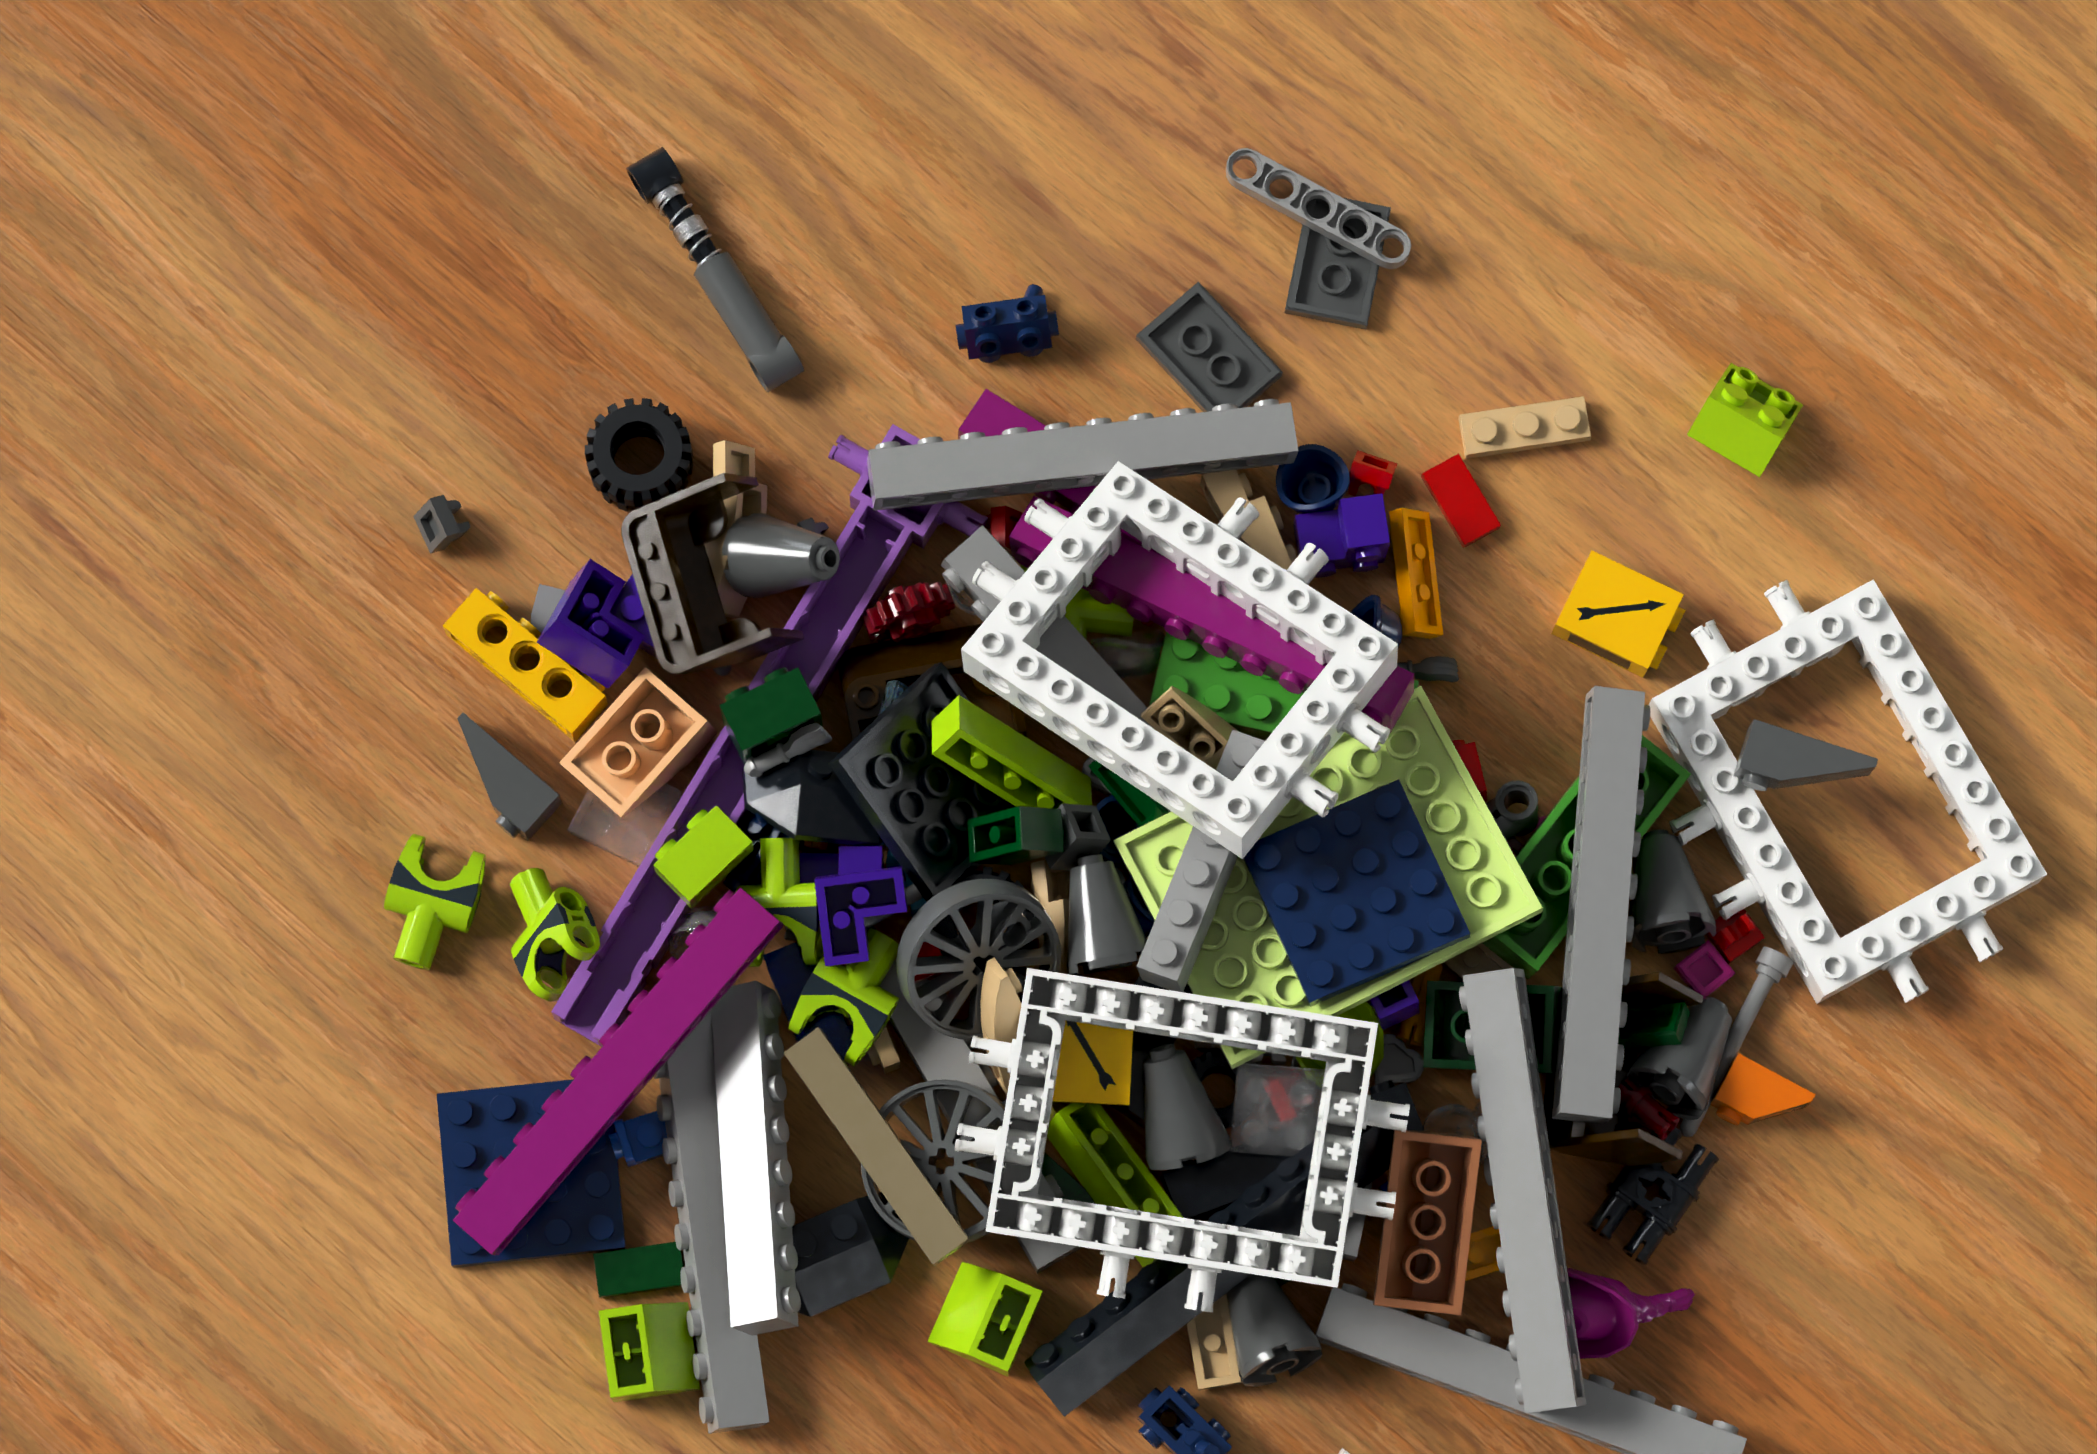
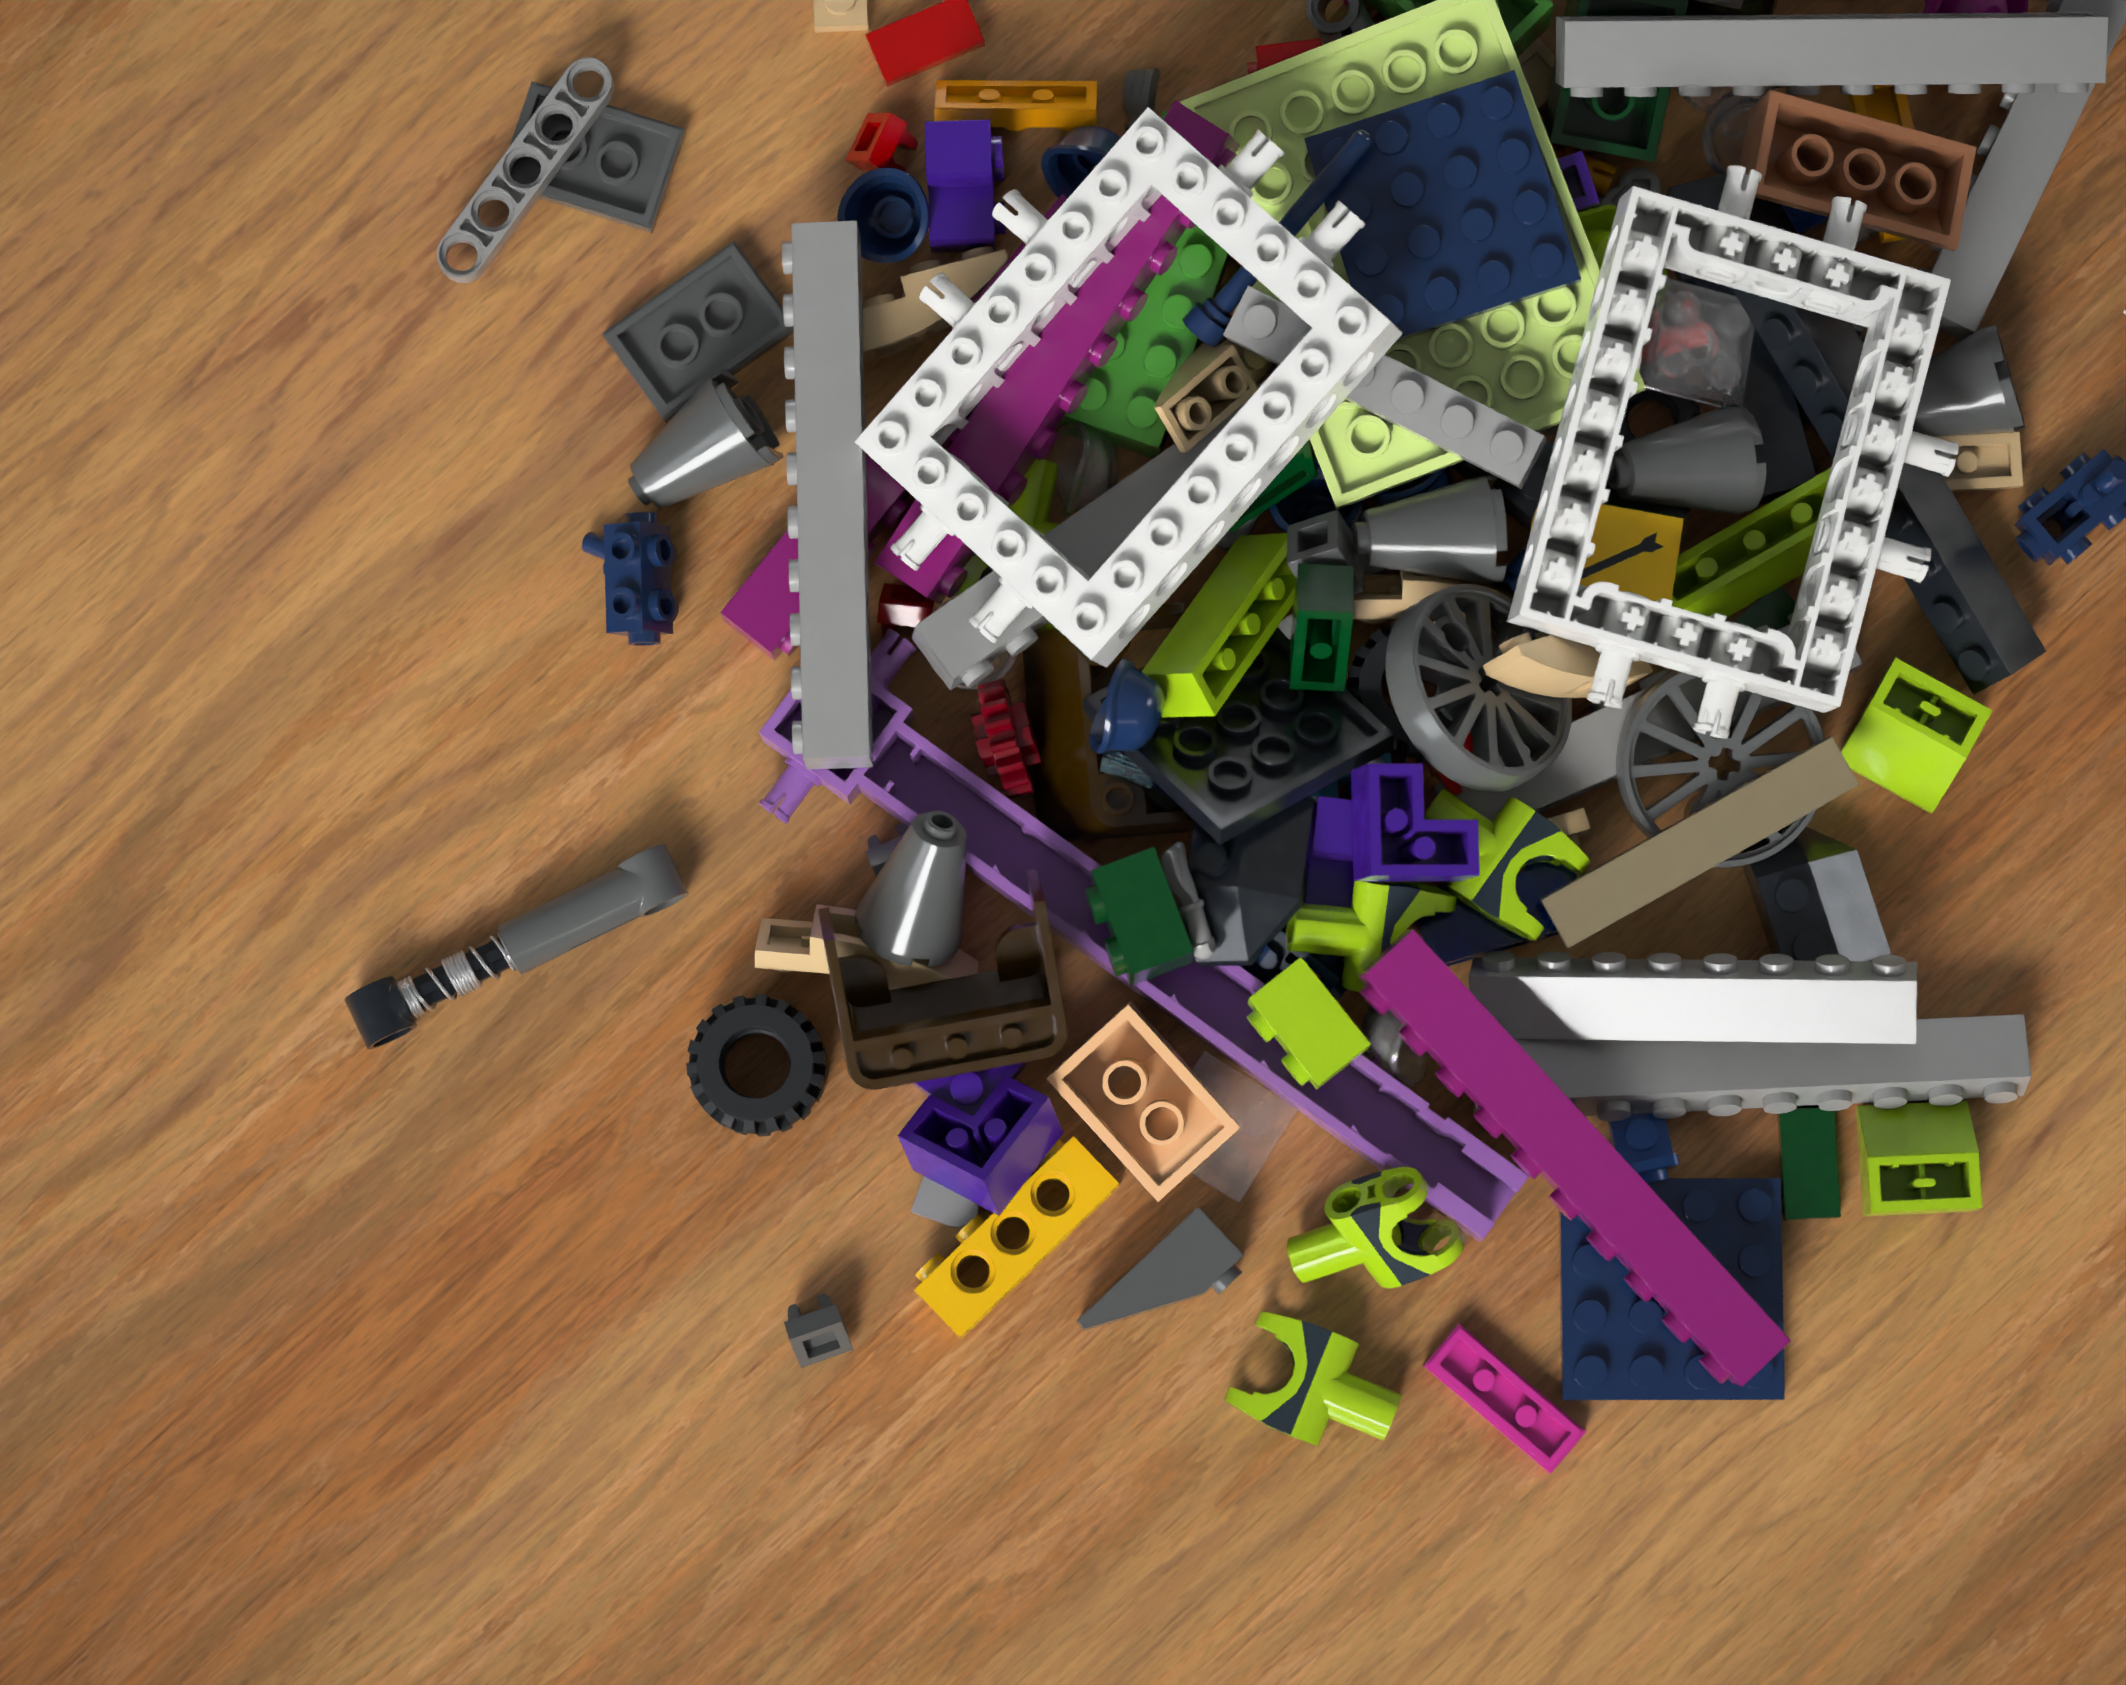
camera: 75 degrees left, 5 degrees up
(434, 1050) = (1504, 1398): none -> dark pink tile
(929, 686) = (1128, 712): none -> dark blue helmet
(1118, 366) = (705, 445): none -> dark grey cone
(1253, 724) = (1212, 317): none -> dark blue piece

